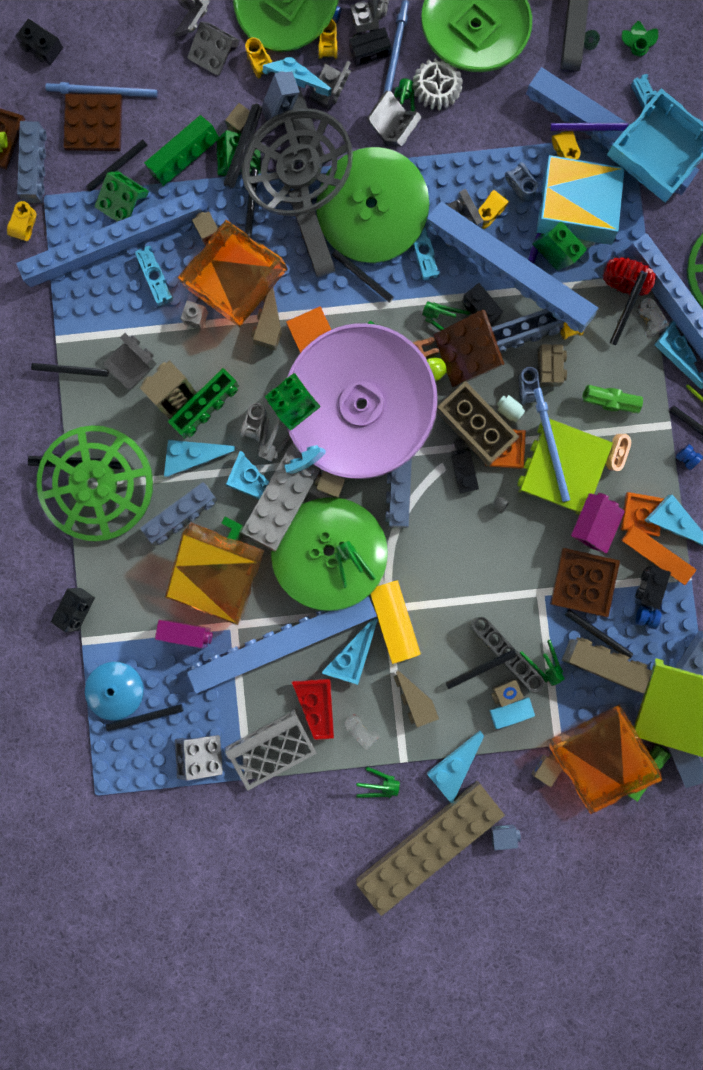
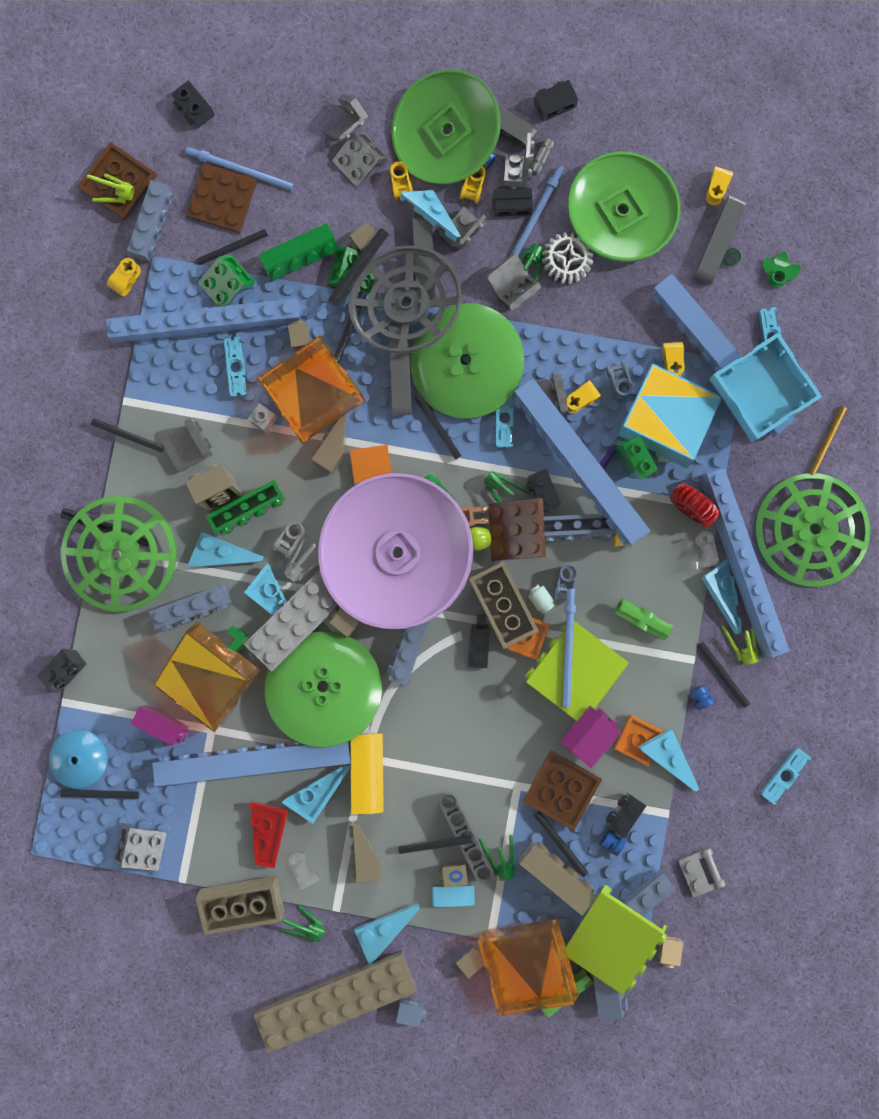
camera: 15 degrees right, 0 degrees up
(262, 735) = (206, 845): light grey fence -> none
(280, 95) = (408, 229): sand blue brick -> none
(292, 401) = (330, 532): green bracket -> none
(309, 457) = (328, 592): medium azure slope -> none
(311, 783) = (240, 905): none -> dark tan brick
(348, 552) = (339, 695): green plant -> none
(551, 365) = (593, 568): dark tan brick -> none
(589, 126) = (699, 346): dark purple bar -> none
(618, 452) = (633, 672): light nougat plate -> none
(628, 307) = (683, 536): black bar -> none
(658, 554) = (641, 784): orange tile -> none

